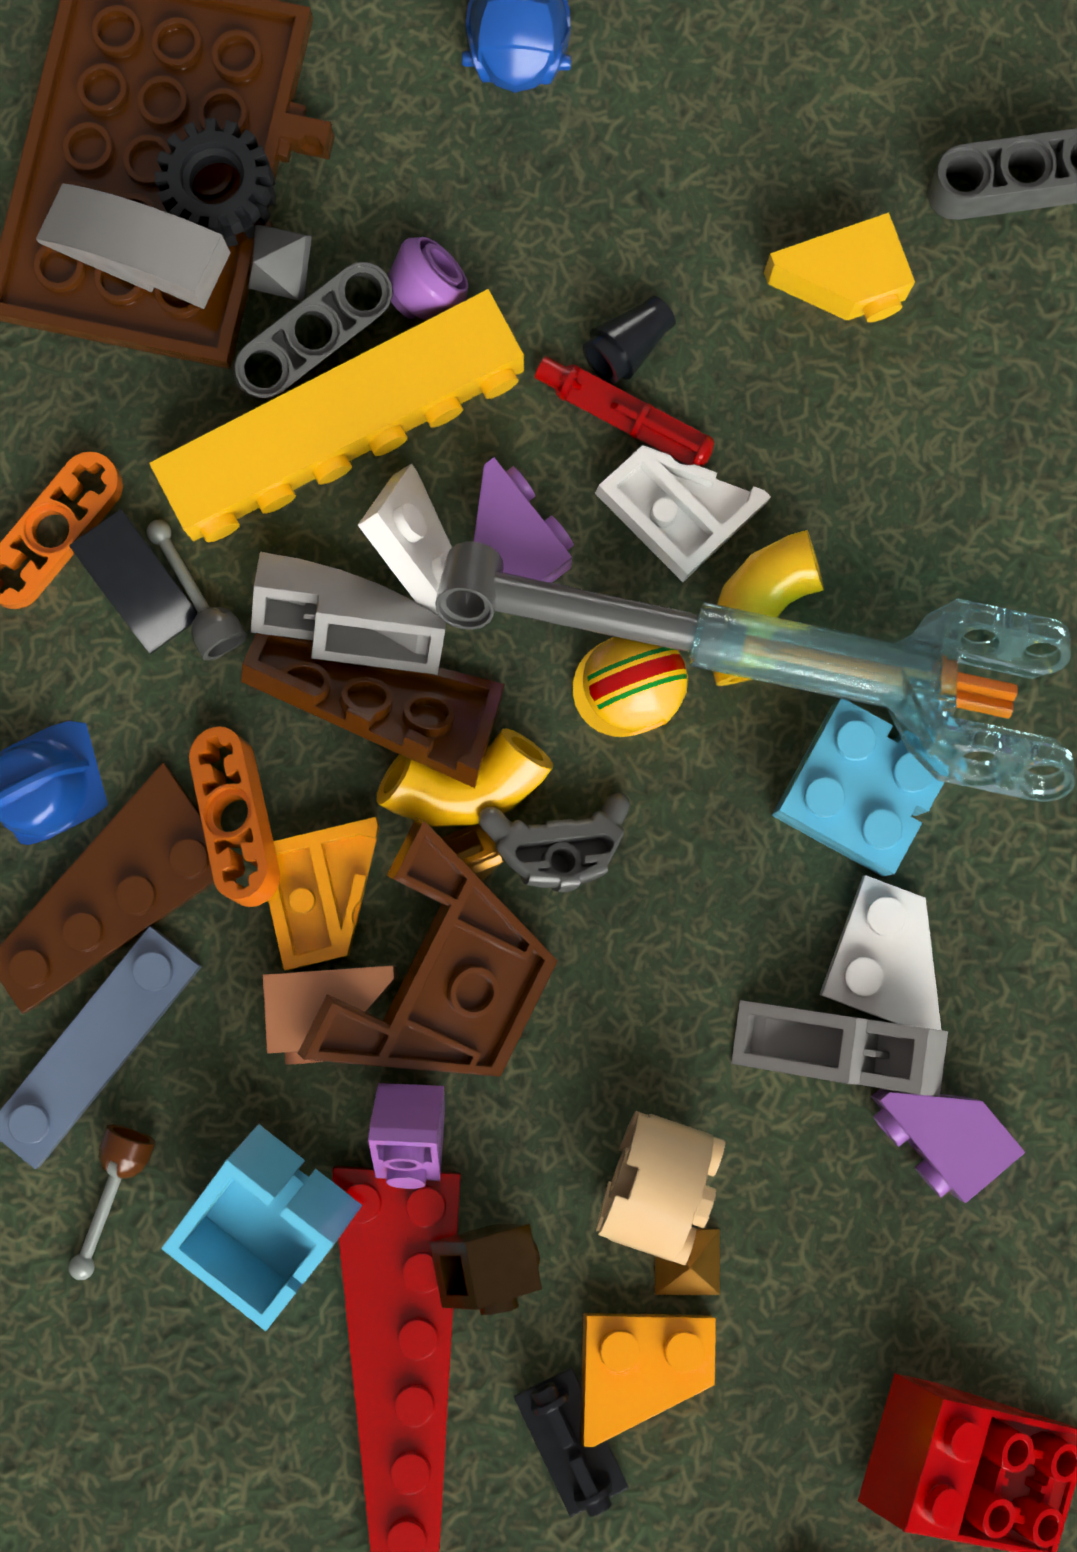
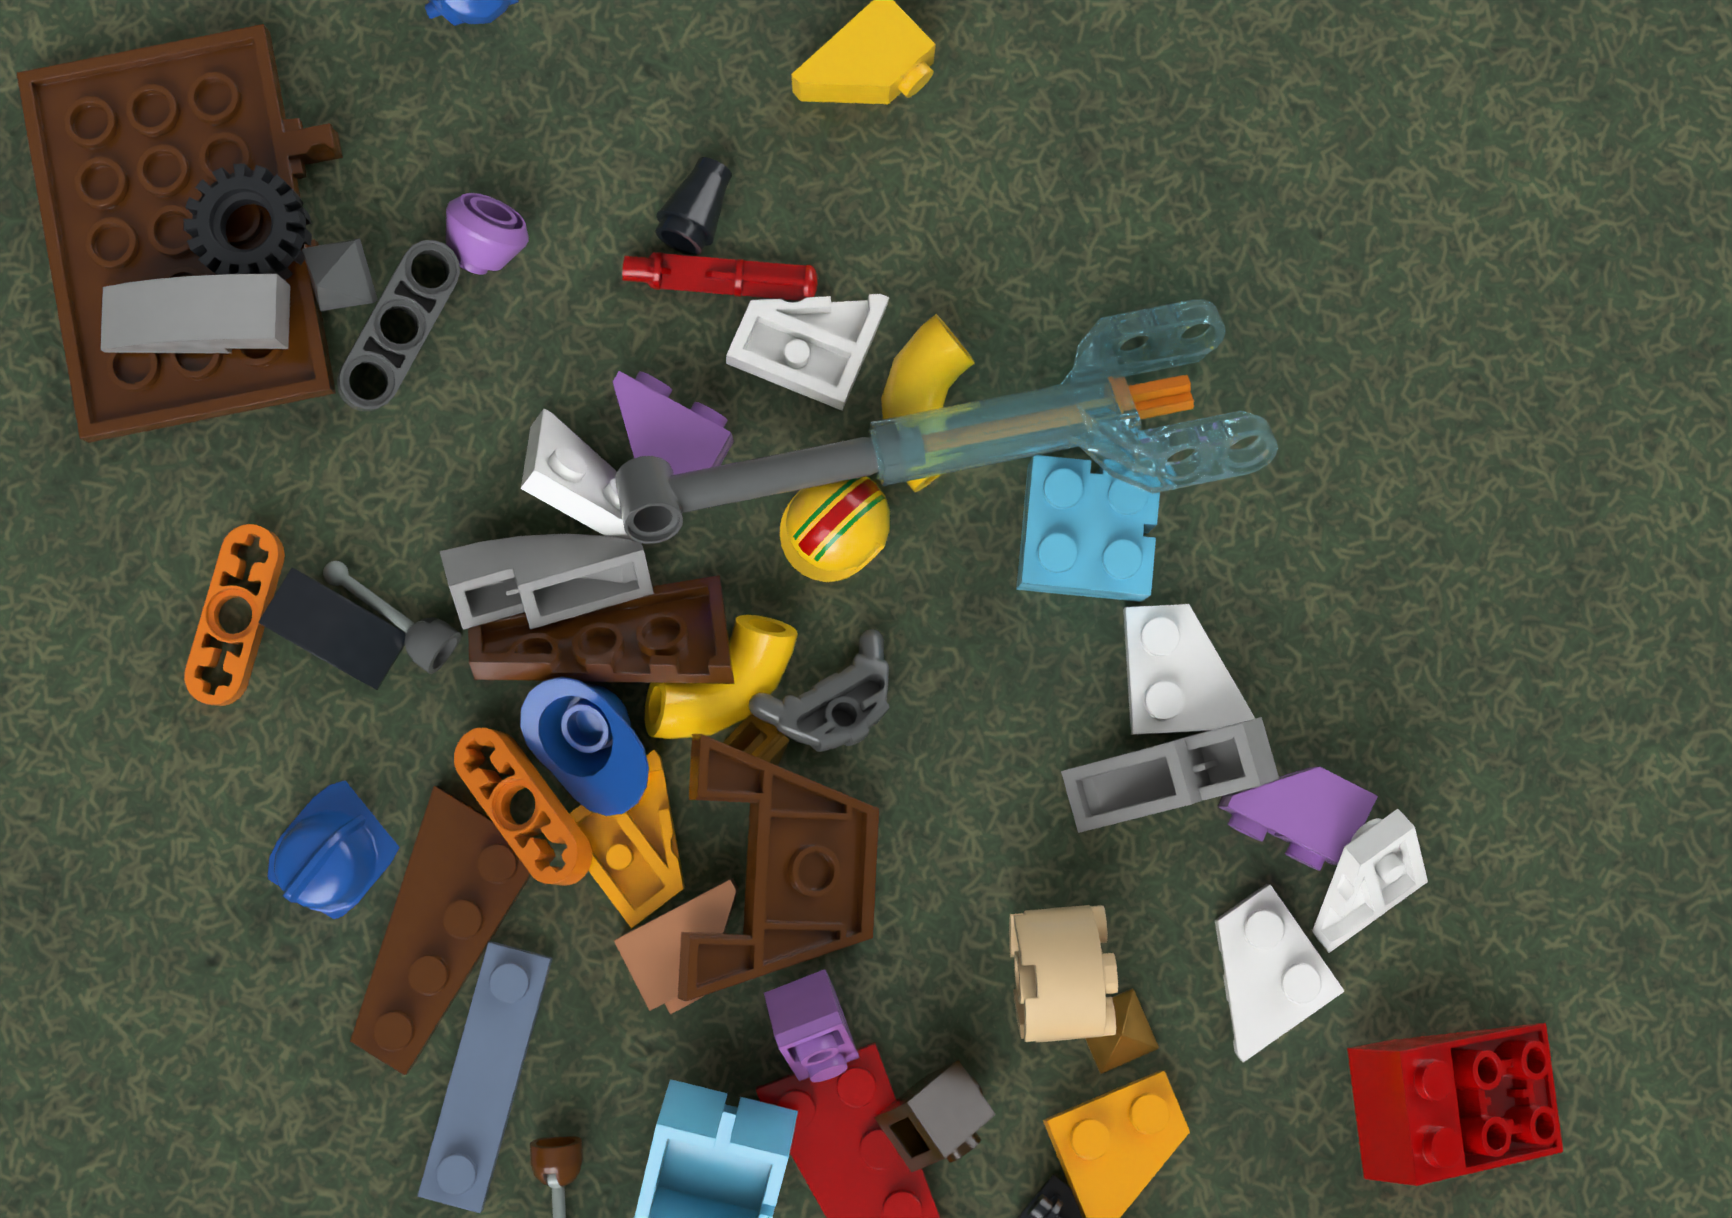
camera: 30 degrees left, 0 degrees up
(316, 784) = (586, 743): none -> blue piece
(340, 417) = (458, 395): yellow brick -> none
(853, 1270) = (1269, 971): none -> white wing
(985, 1226) = (1371, 877): none -> white wing

